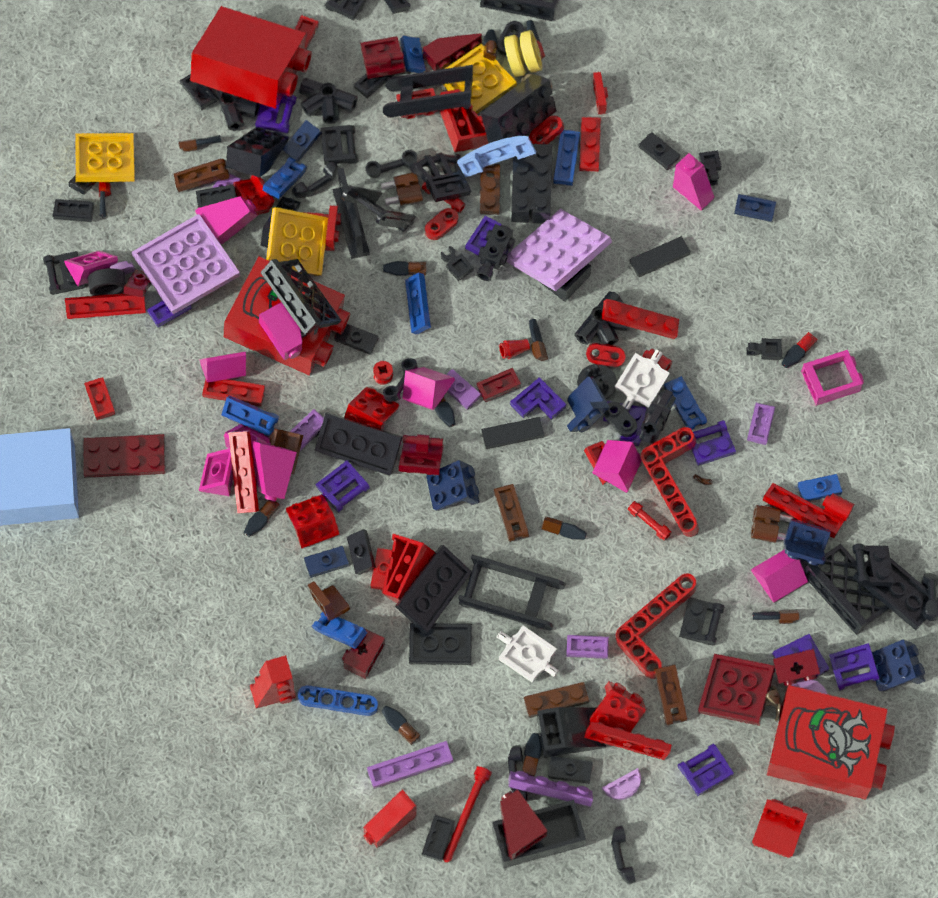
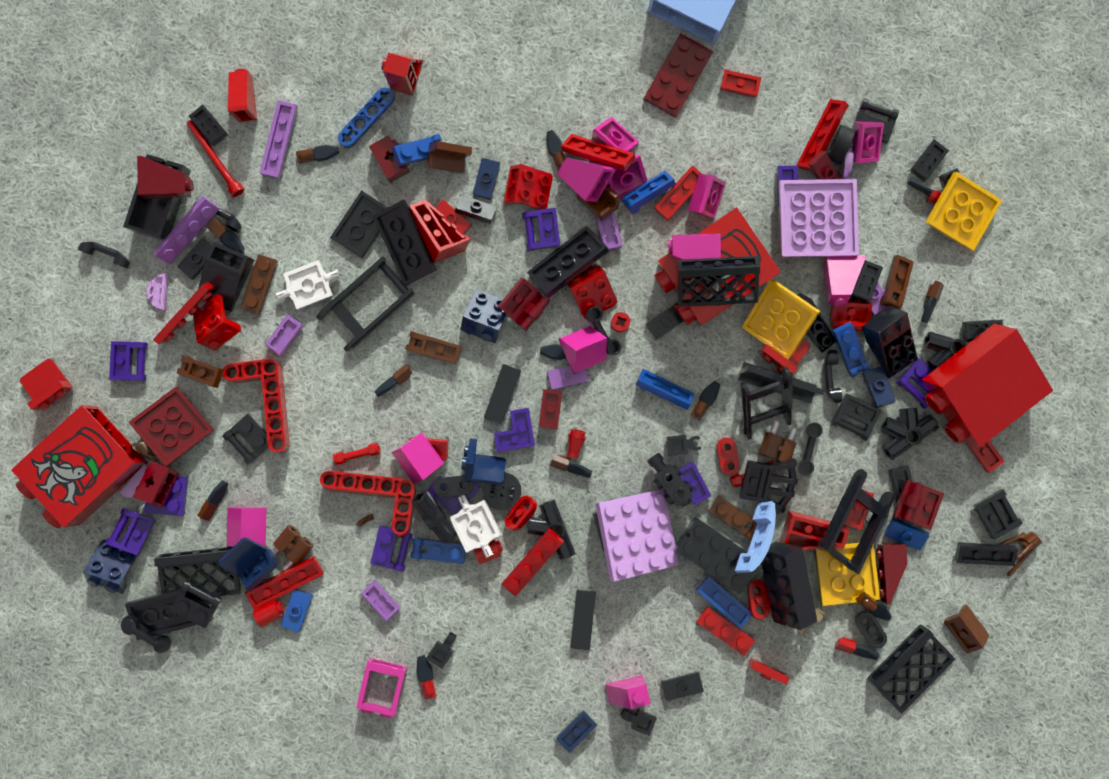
camera: 120 degrees right, 20 degrees up
(523, 53) = (843, 626): light yellow wheel -> none

